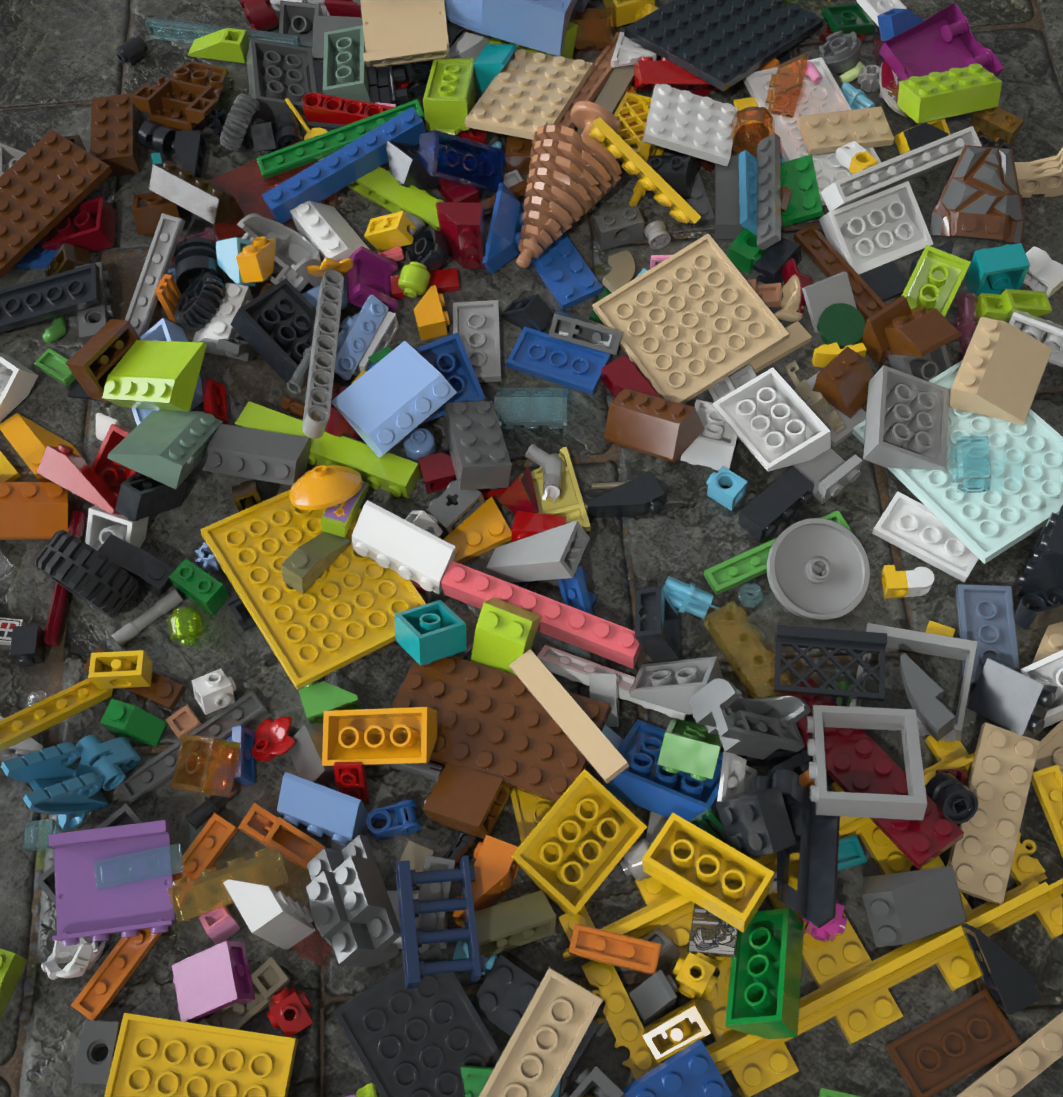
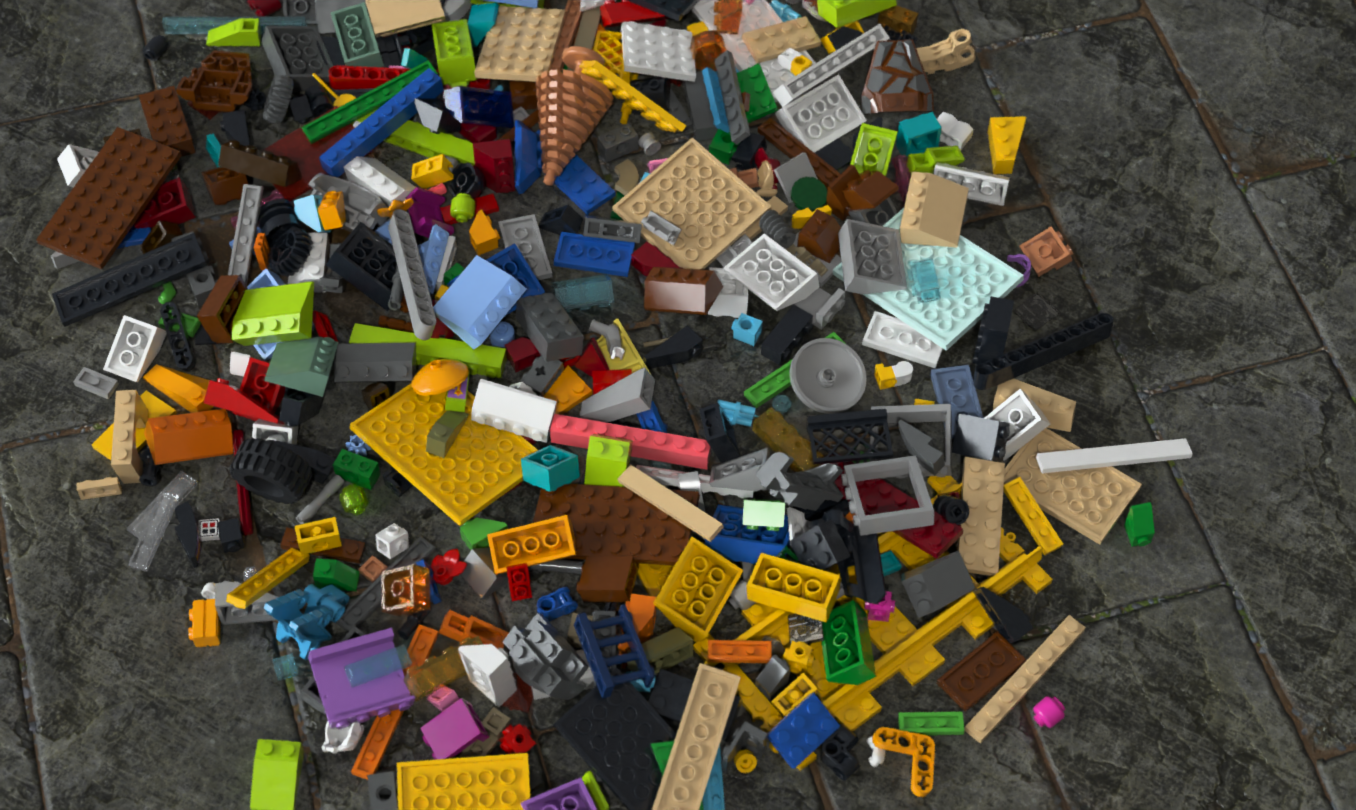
camera: 20 degrees left, 5 degrees down
(51, 382) = (180, 335): none -> black beam
(156, 137) = (204, 120): black wheel -> none
(321, 809) = (501, 604): medium blue slope -> none
(400, 95) = (412, 59): none -> teal tile
(645, 340) = (661, 227): none -> light grey hinge
(791, 364) = (777, 229): none -> dark grey piece

